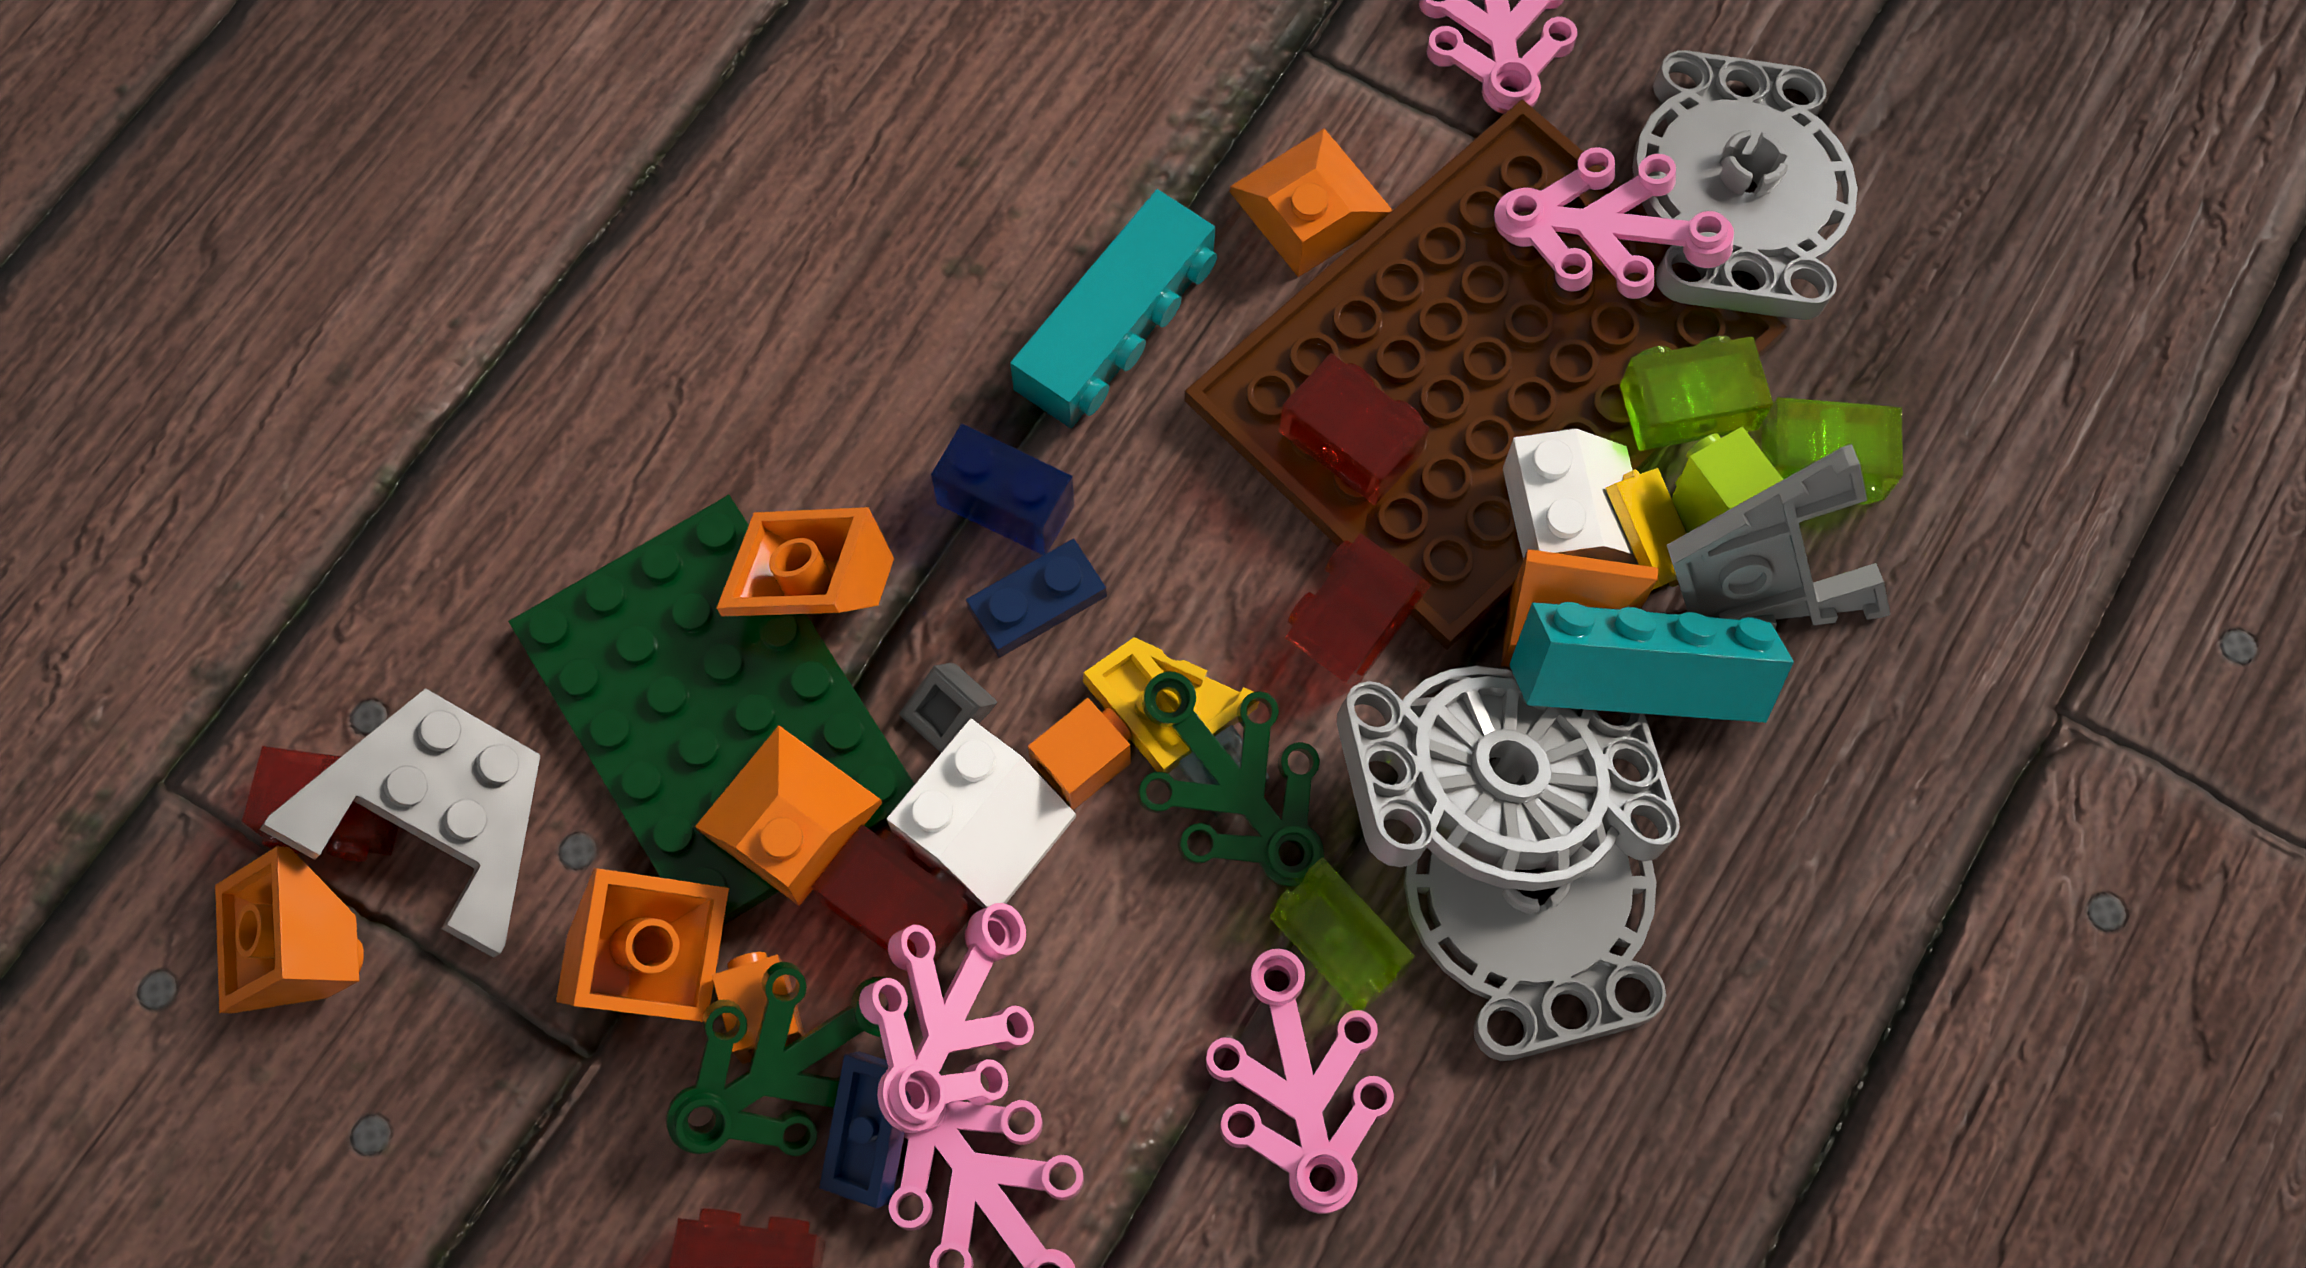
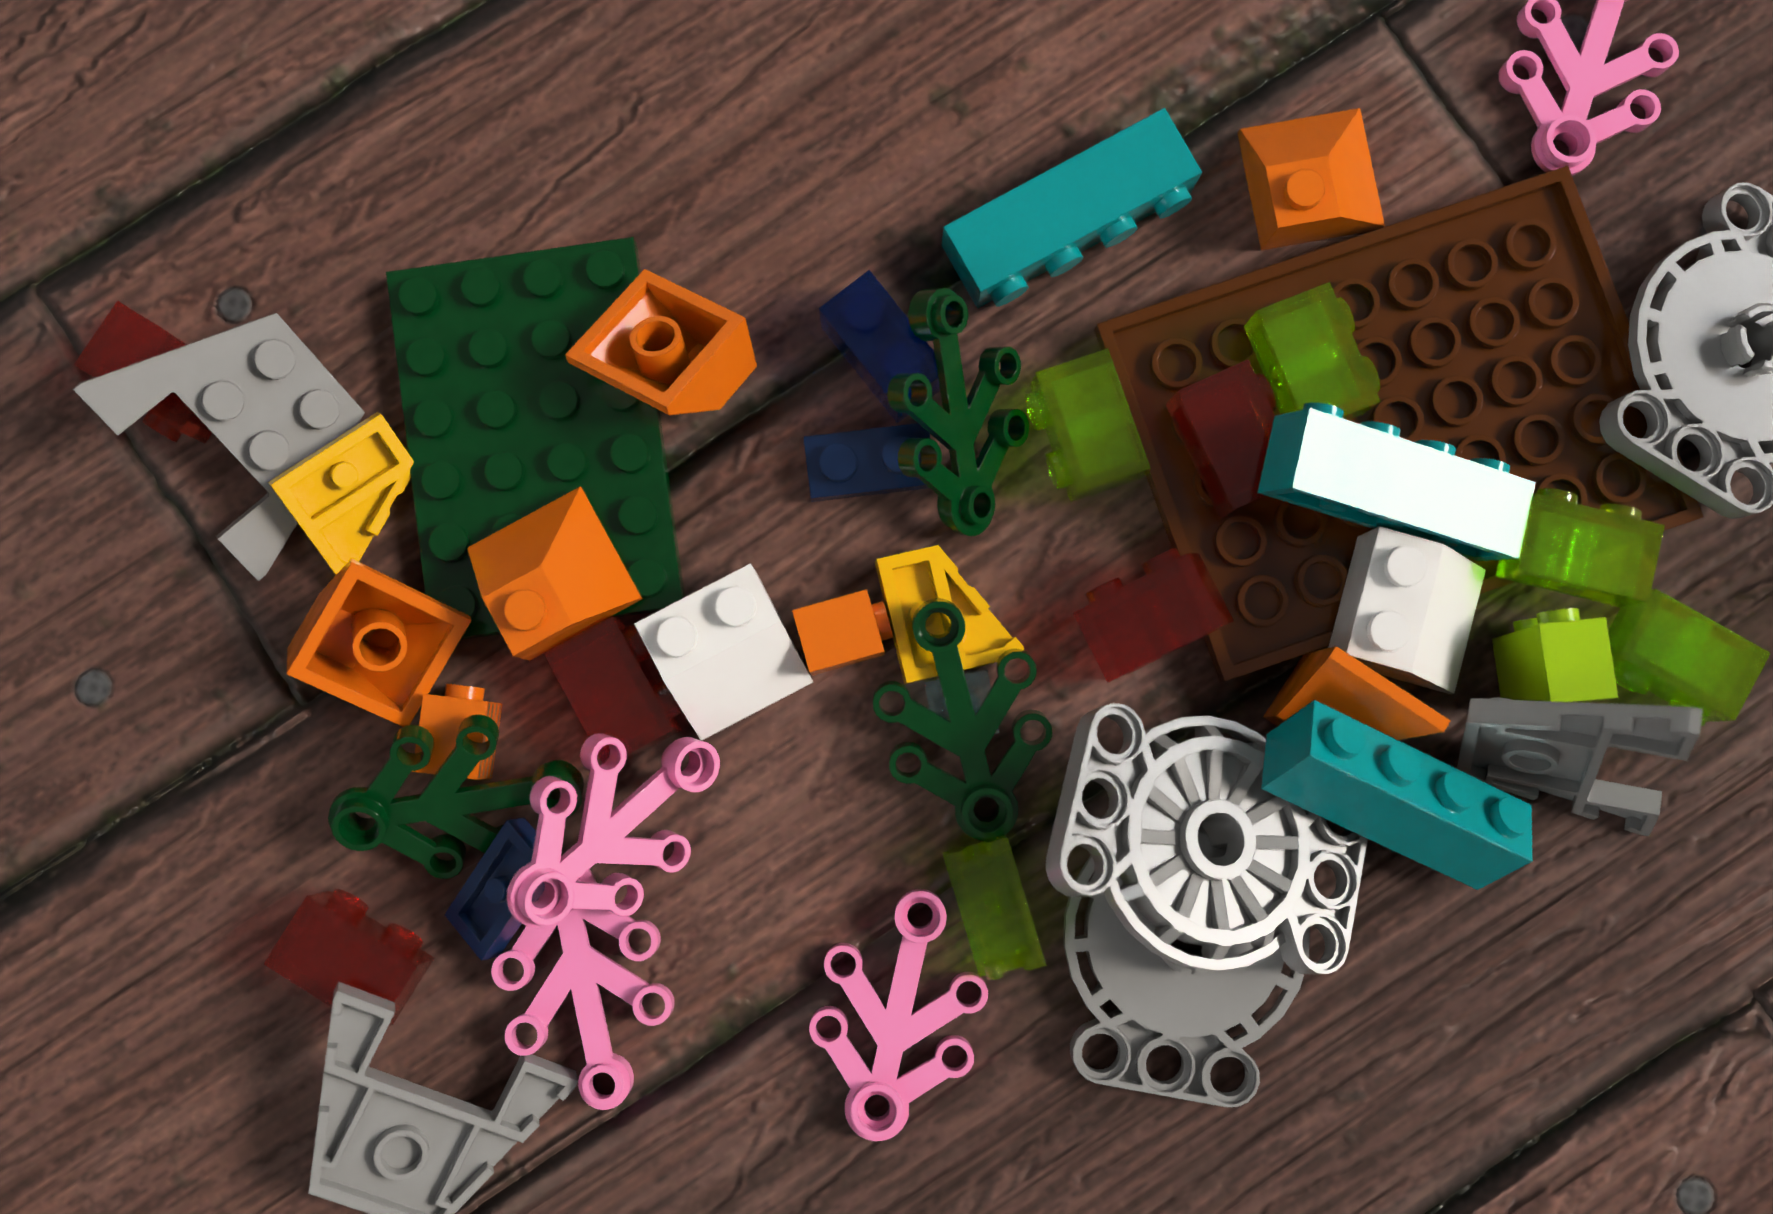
camera: 25 degrees right, 15 degrees up
(282, 936) = (77, 482): orange slope -> none
(553, 829) = (346, 489): none -> yellow wing
(946, 704) = (745, 529): dark grey slope -> none
(1136, 581) = (966, 493): none -> dark green plant
(1219, 480) = (1087, 426): none -> clear neon green brick
(1388, 335) = (1312, 355): none -> clear neon green brick
(1490, 398) = (1396, 484): none -> brick
(1605, 223) = (1581, 339): bright pink plant -> none
(1648, 520) = (1468, 657): yellow piece -> none

